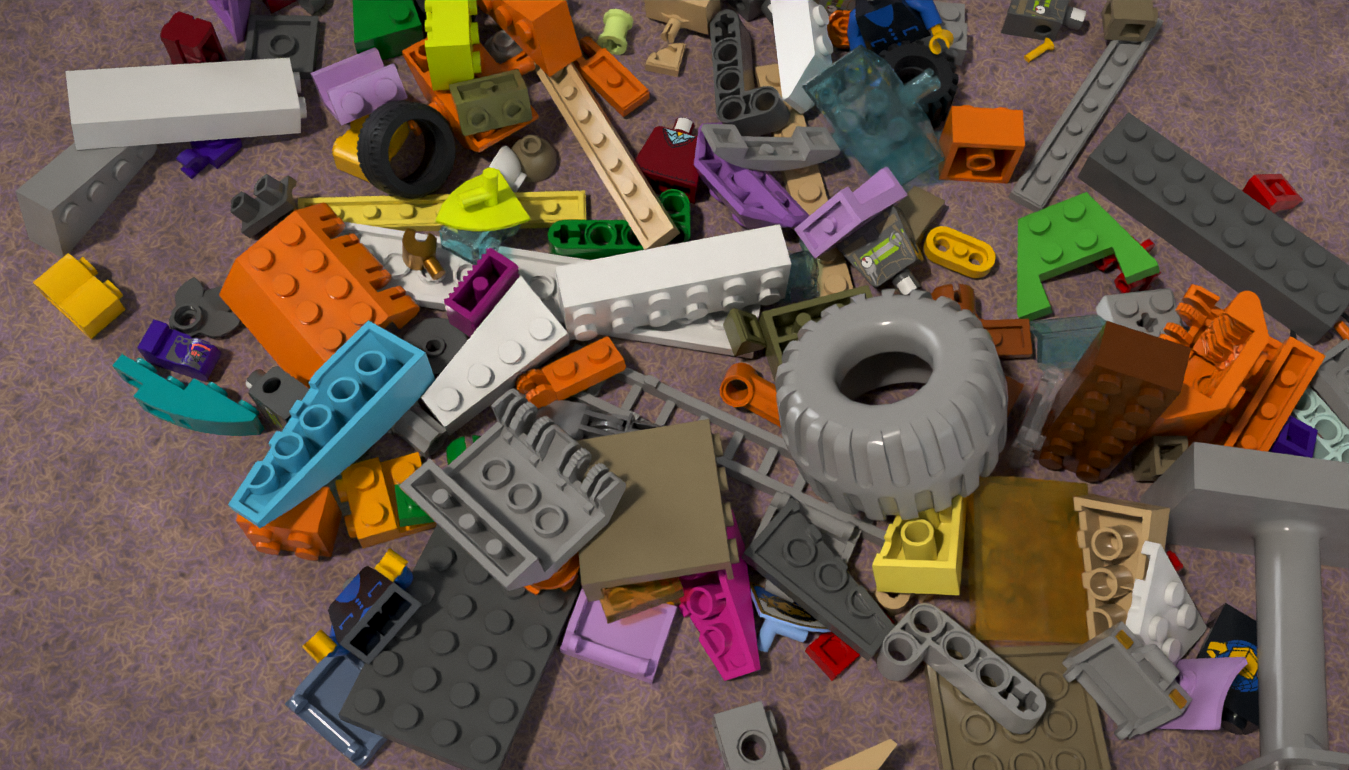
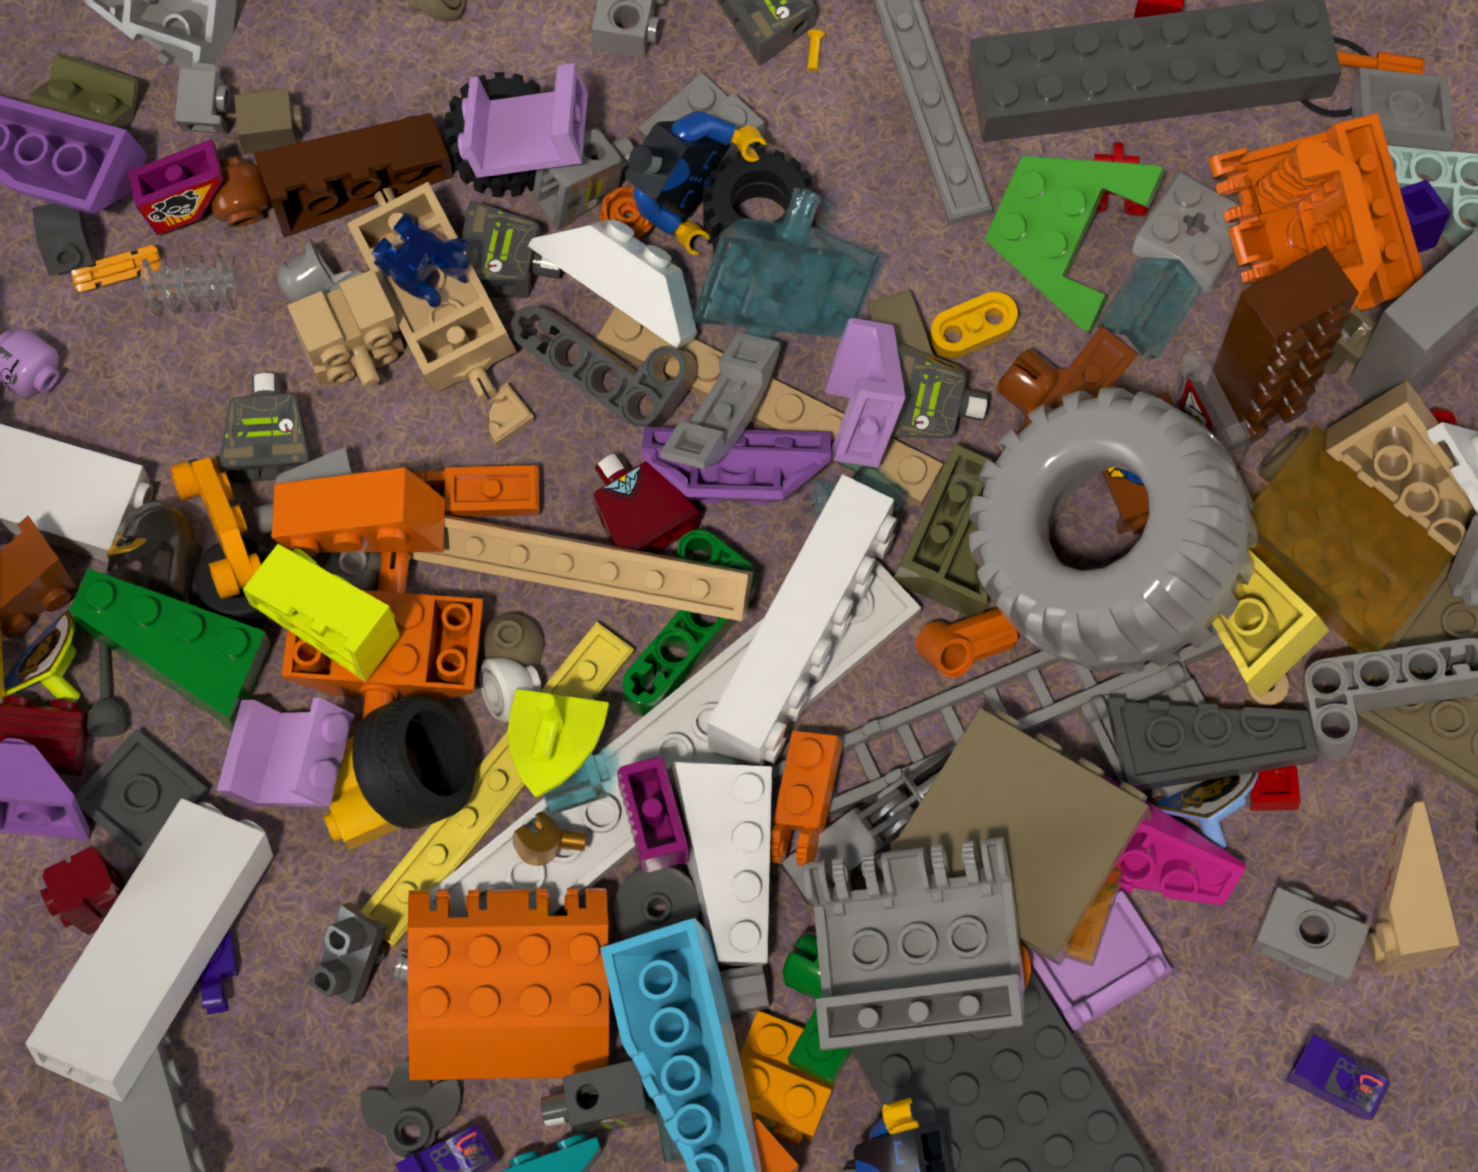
camera: 45 degrees left, 5 degrees up
(491, 102) = (438, 633): olive bracket -> none
(615, 31) = (431, 440): yellowish green bush -> none
(743, 332) = (896, 600): olive slope -> none
(981, 144) = (886, 201): orange brick -> none

